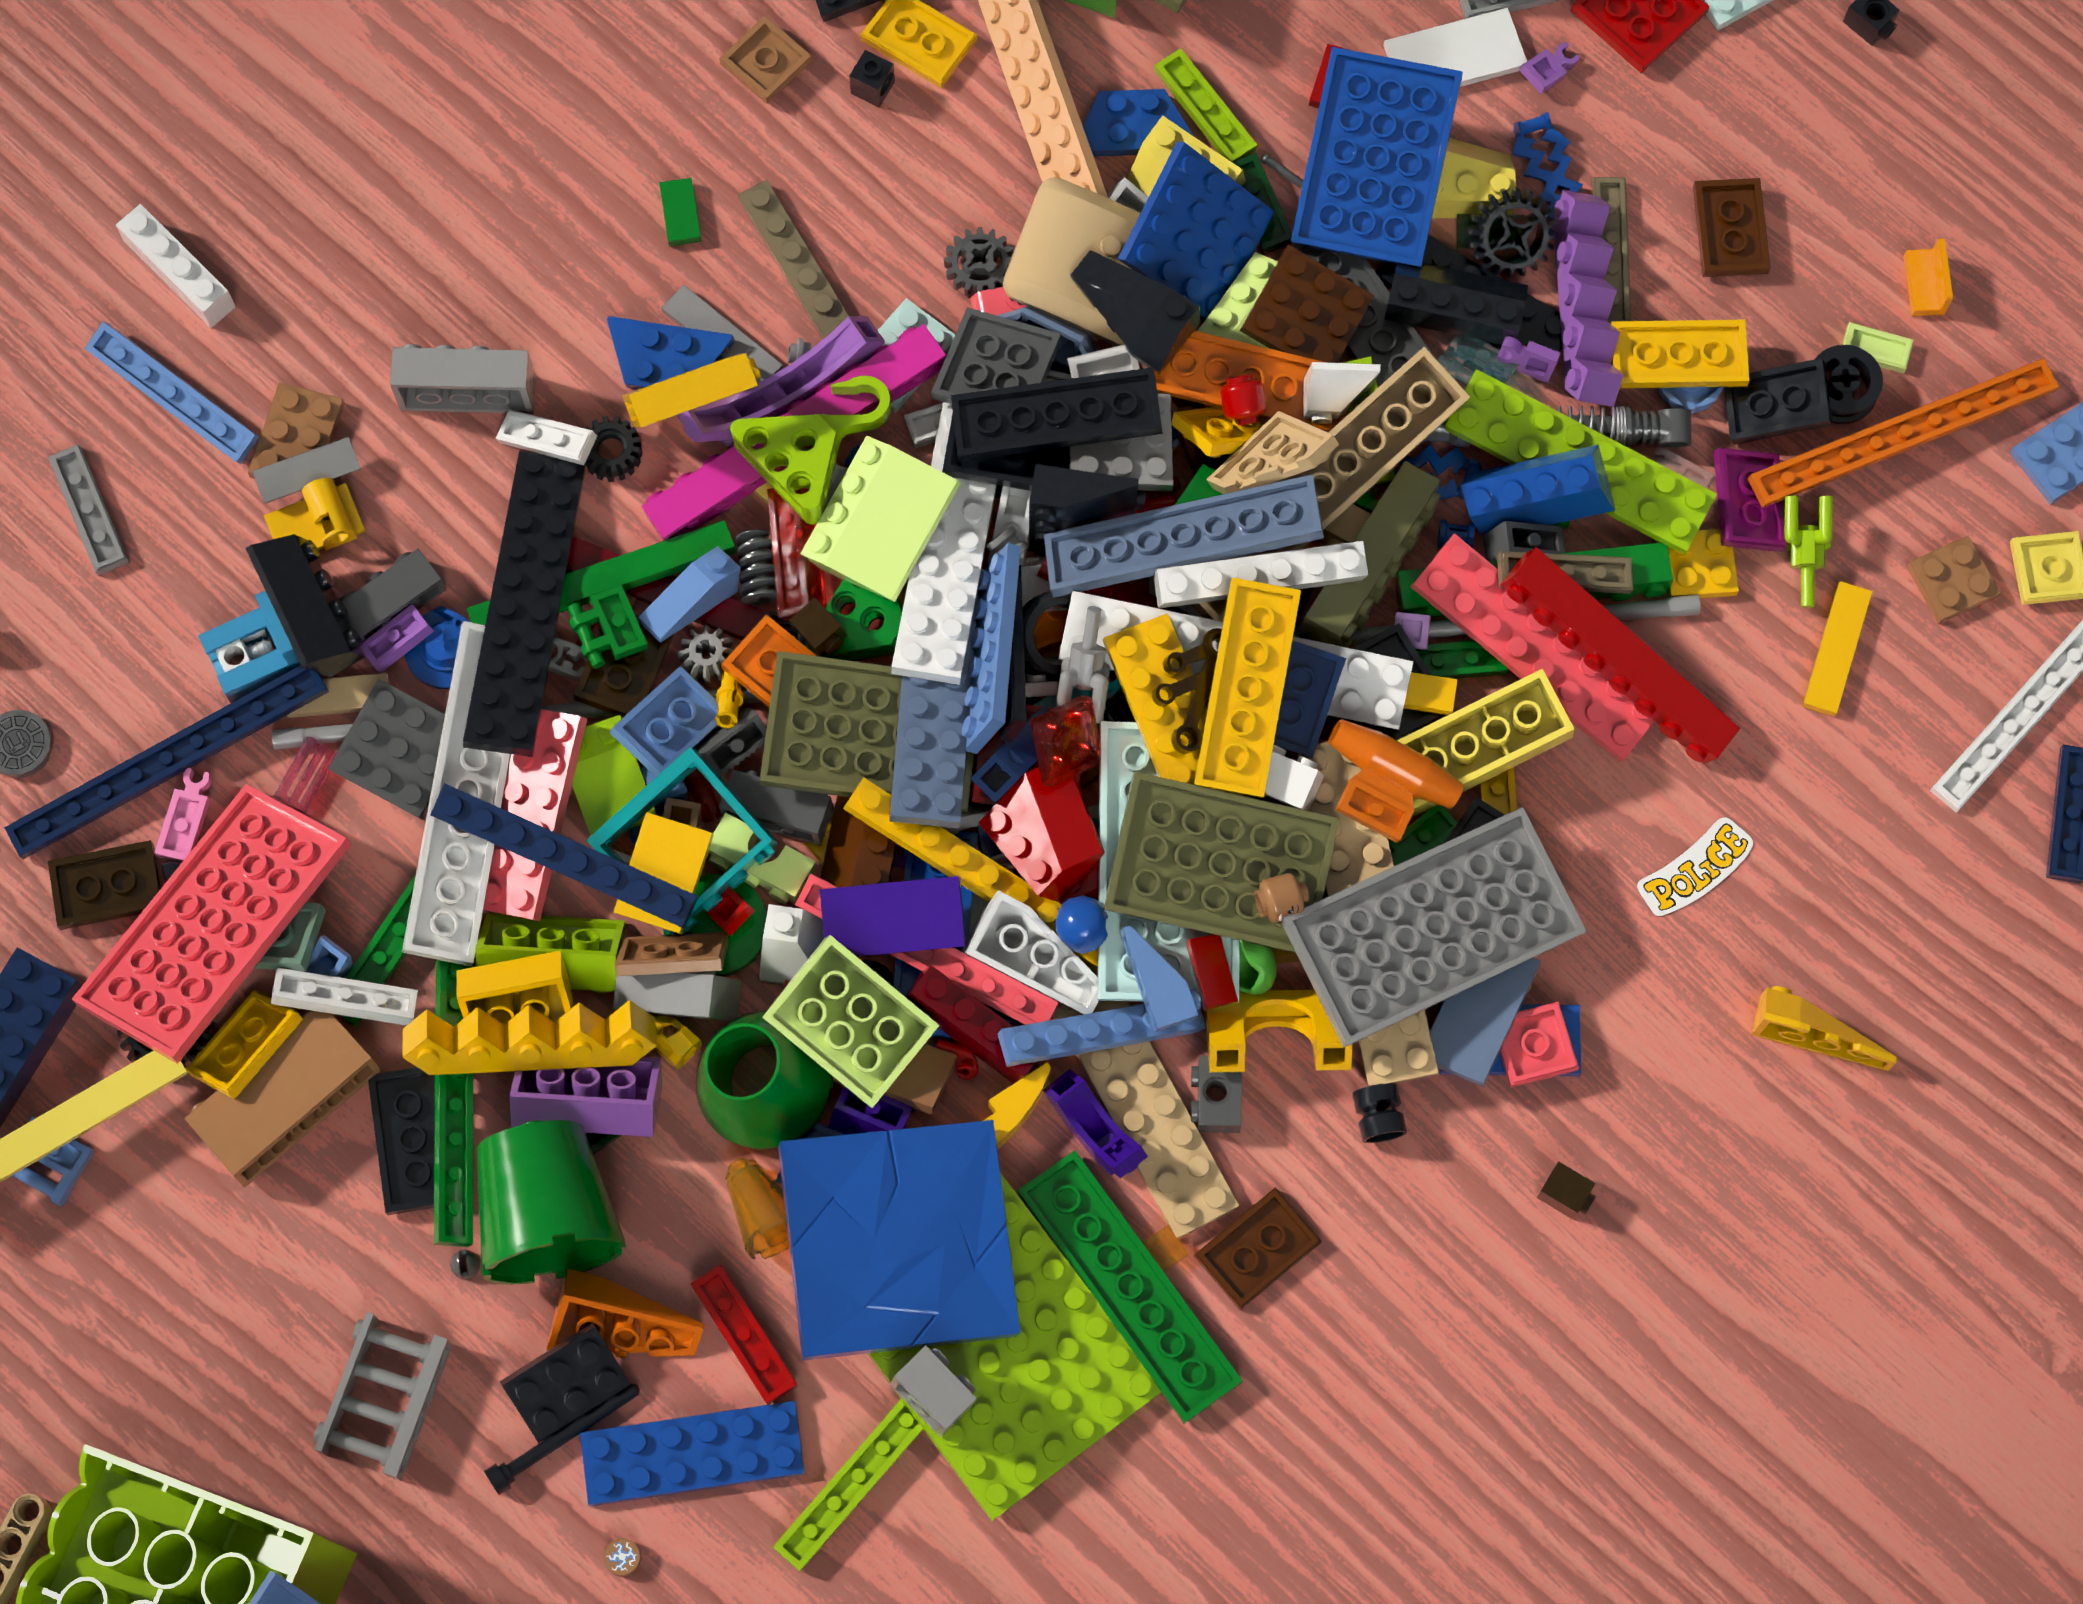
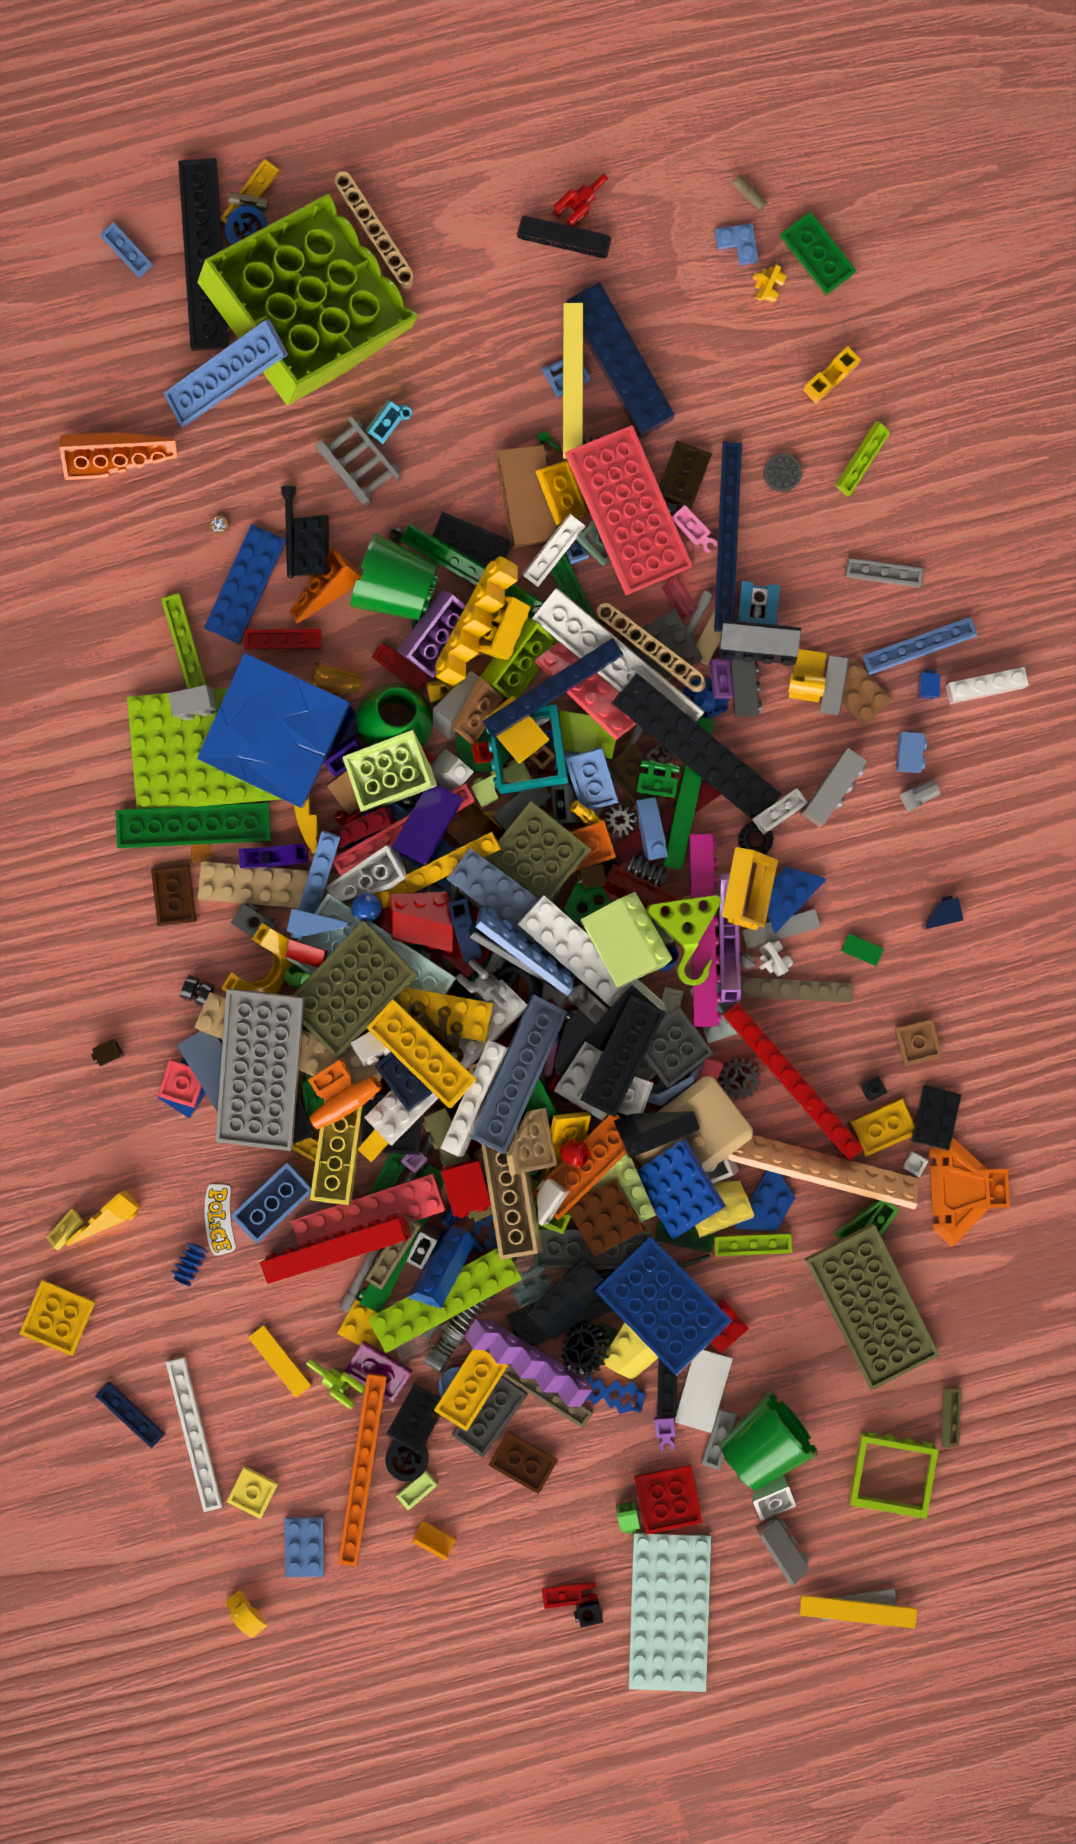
camera: 125 degrees right, 15 degrees up
(169, 1131) = (545, 437): none -> green hand
(224, 345) = (929, 685): none -> blue brick
(287, 1388) = (387, 420): none -> medium azure hinge
(343, 310) = (910, 752): none -> medium blue brick
(403, 742) = (646, 639): none -> tan beam
(407, 268) = (915, 797): none -> light grey piece
(555, 131) = (944, 913): none -> dark blue slope
(674, 1127) = (400, 666): none -> red tile
(776, 318) = (772, 960): none -> white hips
(934, 188) = (791, 1080): none -> red brick
(1066, 740) = (454, 954): clear red plate -> none
(1281, 897) = (314, 1004): medium nougat head -> none
(1399, 515) = (466, 1187): none -> red brick
(1490, 100) = (666, 1391): none -> black plate
(1533, 360) = (513, 1313): medium lavender plate -> none
(1616, 797) = (272, 1202): none -> medium blue brick
(1701, 301) = (492, 1417): none -> dark grey tile
(1702, 43) = (627, 1517): none -> bright green slope
(1792, 862) = (189, 1263): none -> blue piece
(1867, 59) = (567, 1594): none -> red hinge
(1875, 1082) = (65, 1229): none -> light yellow plate
(1953, 579) = (277, 1441): medium nougat plate -> none
(2011, 1009) = (57, 1317): none -> yellow plate

